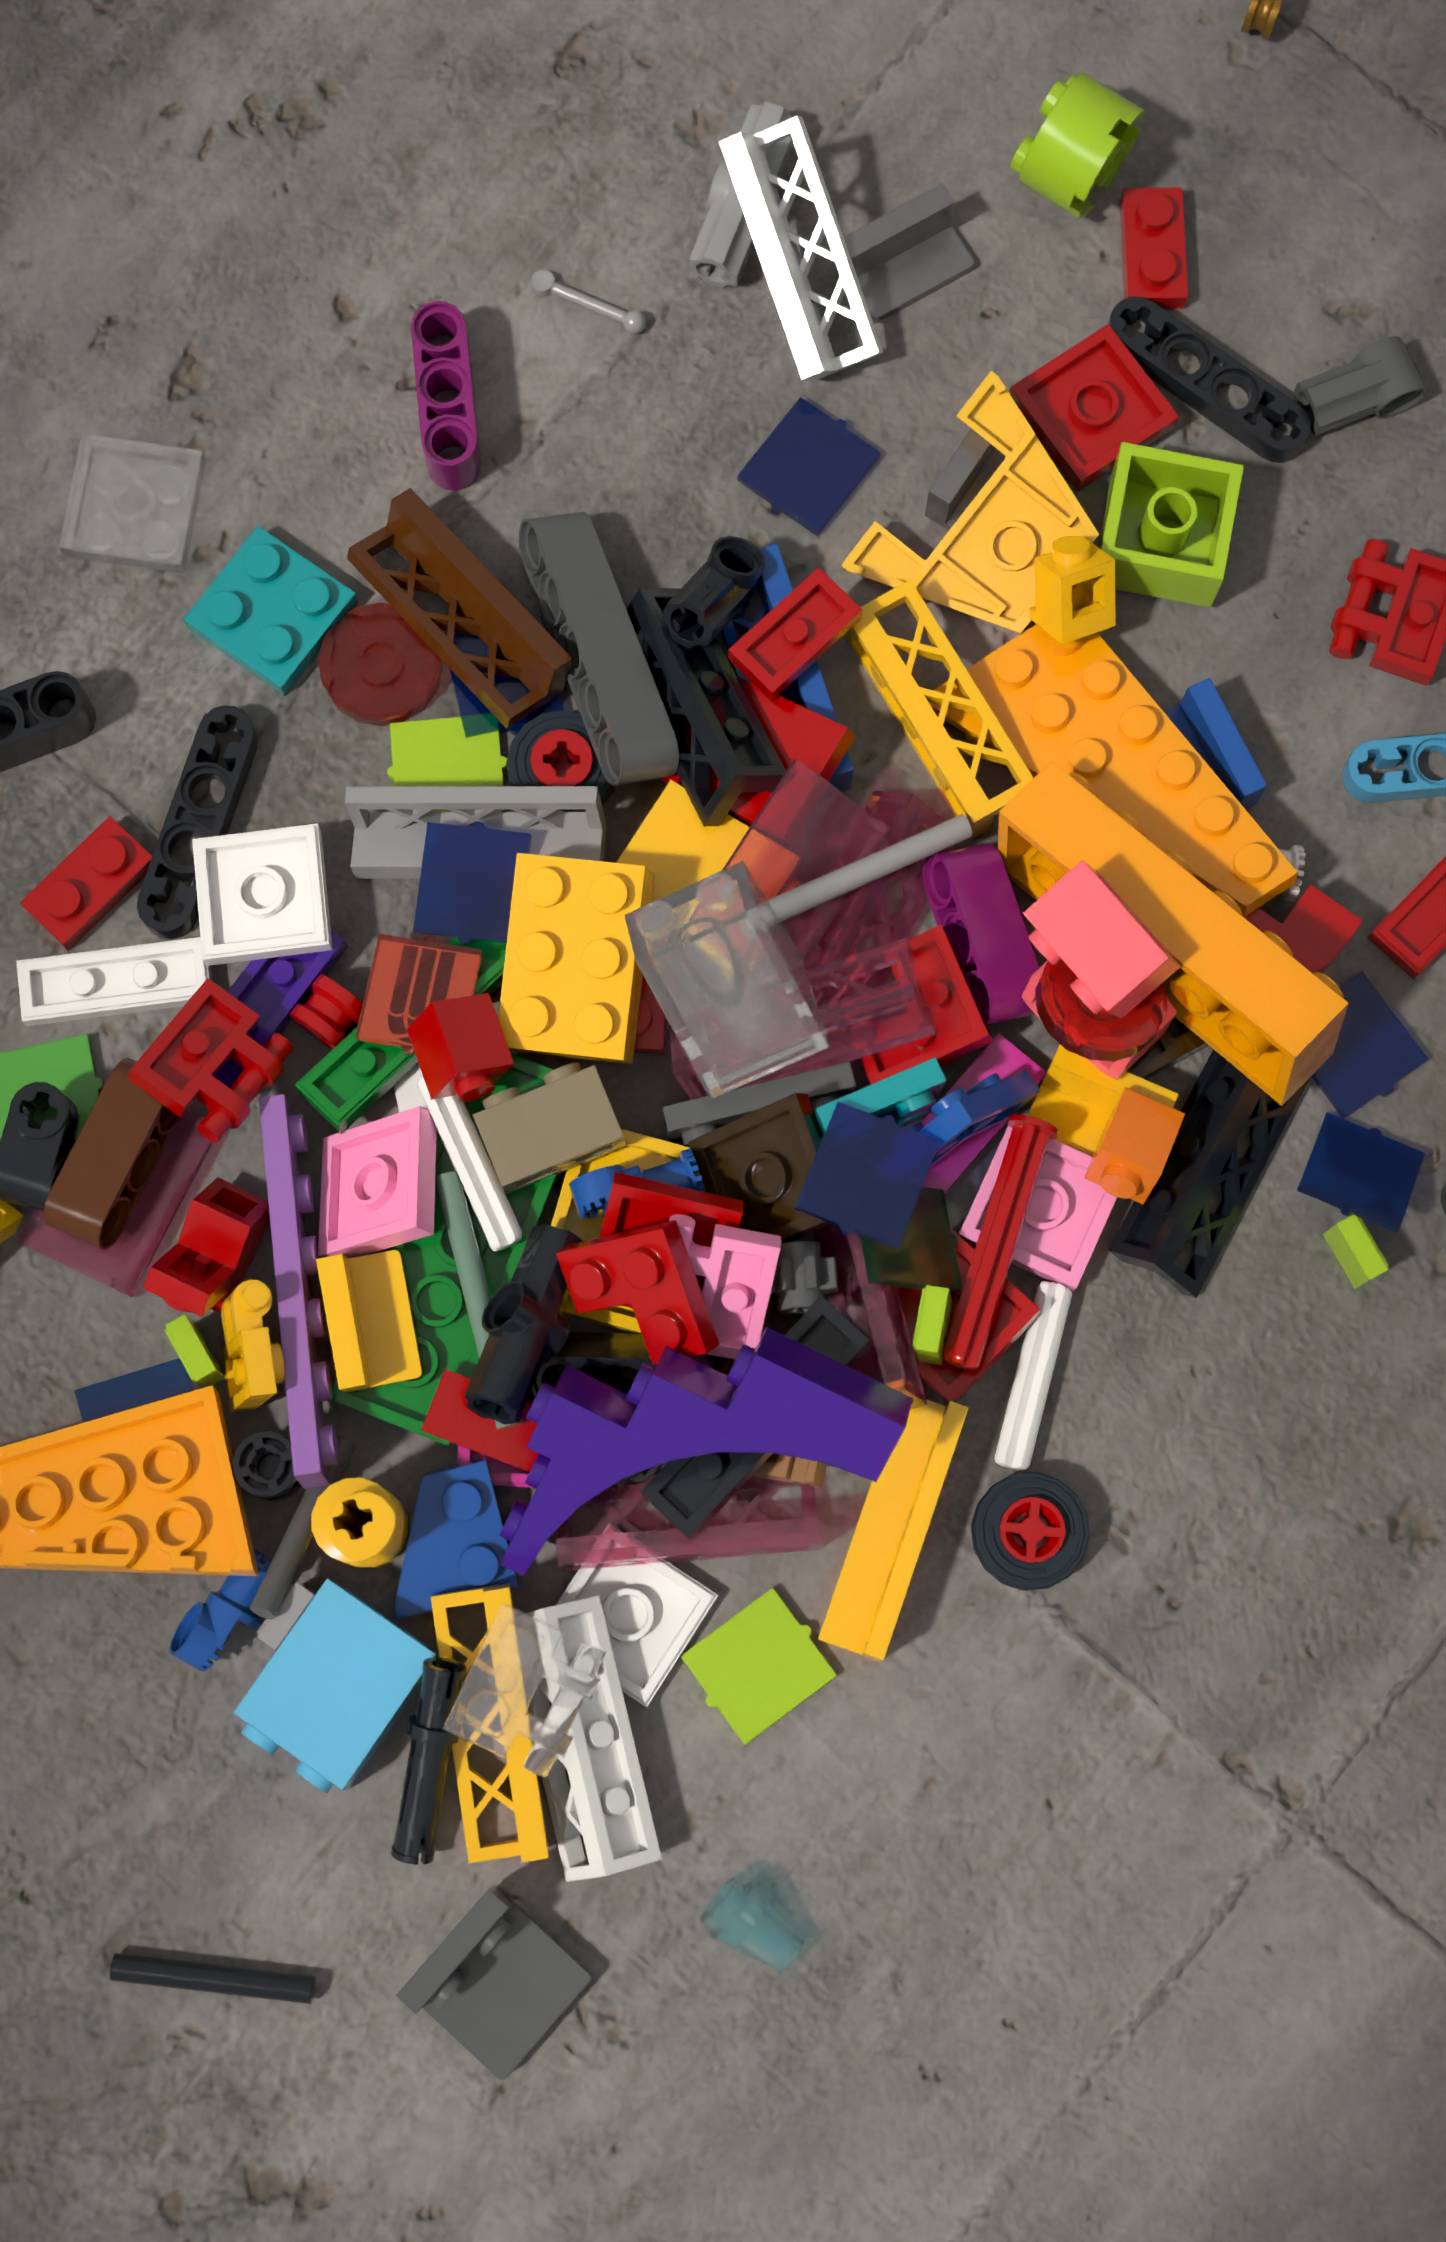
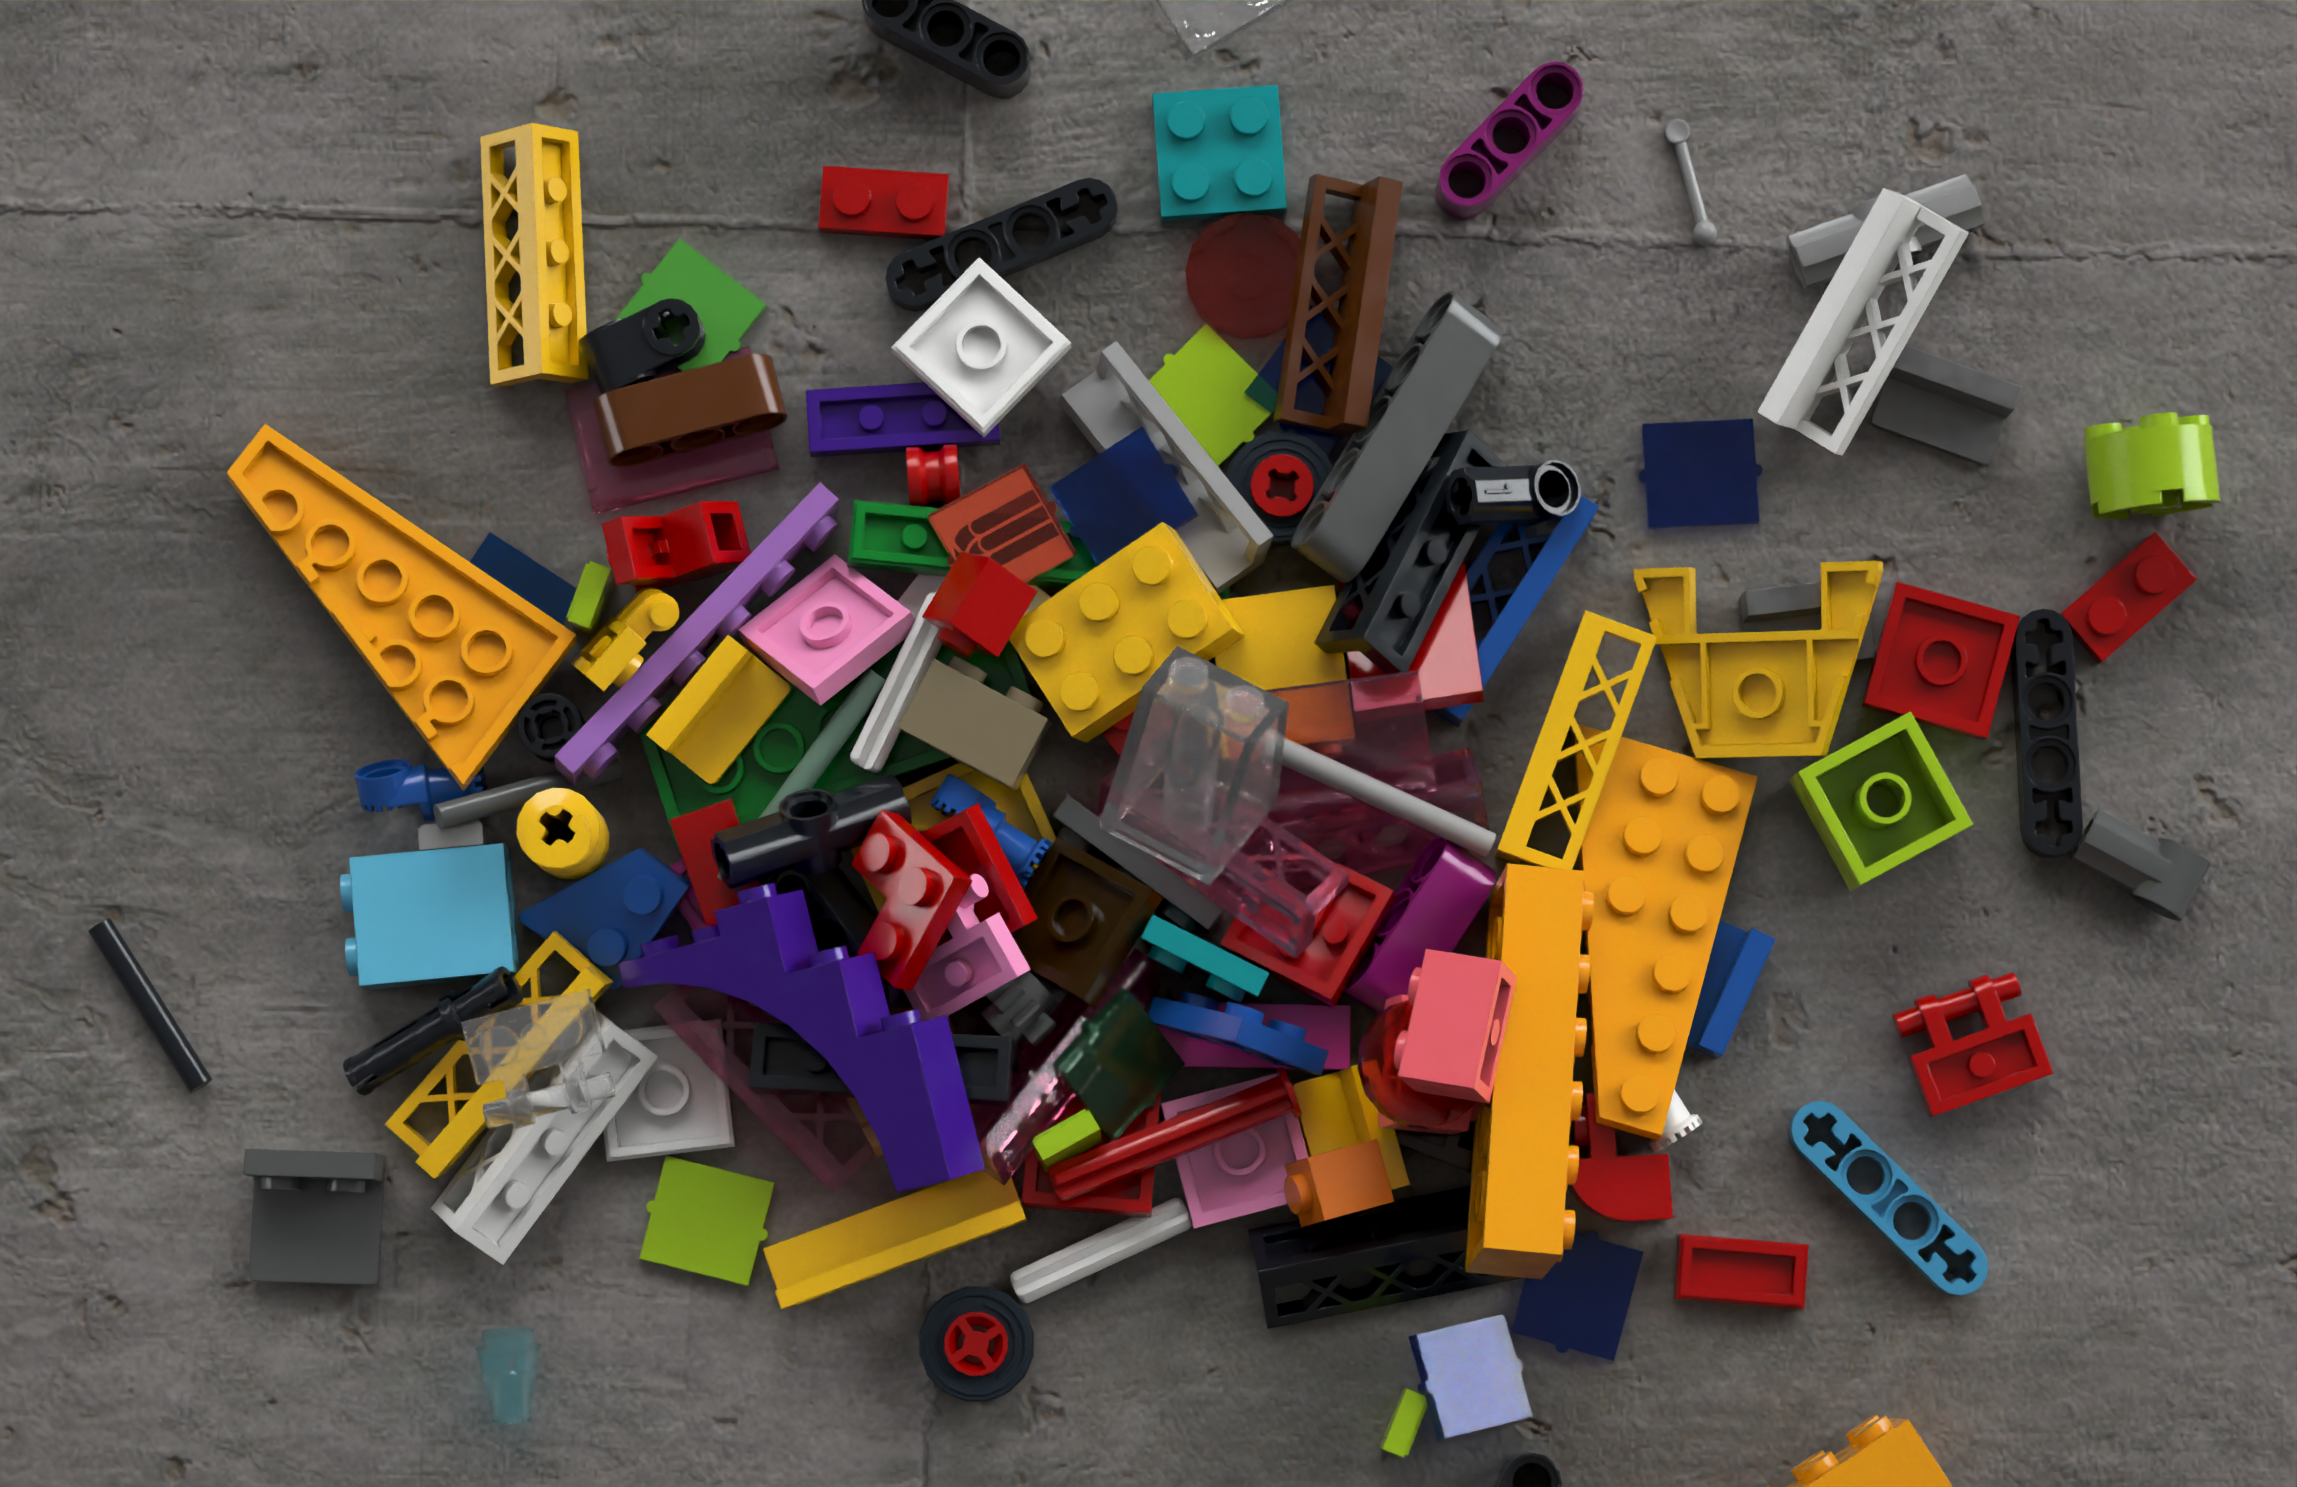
camera: 50 degrees right, 5 degrees up
(110, 981) = (823, 289): white tile -> none
(196, 1046) = (816, 404): red plate -> none
(795, 634) = (1529, 585): red plate -> none
(867, 1175) = (1131, 996): clear blue piece -> none
(1071, 579) = (1760, 759): yellow brick -> none

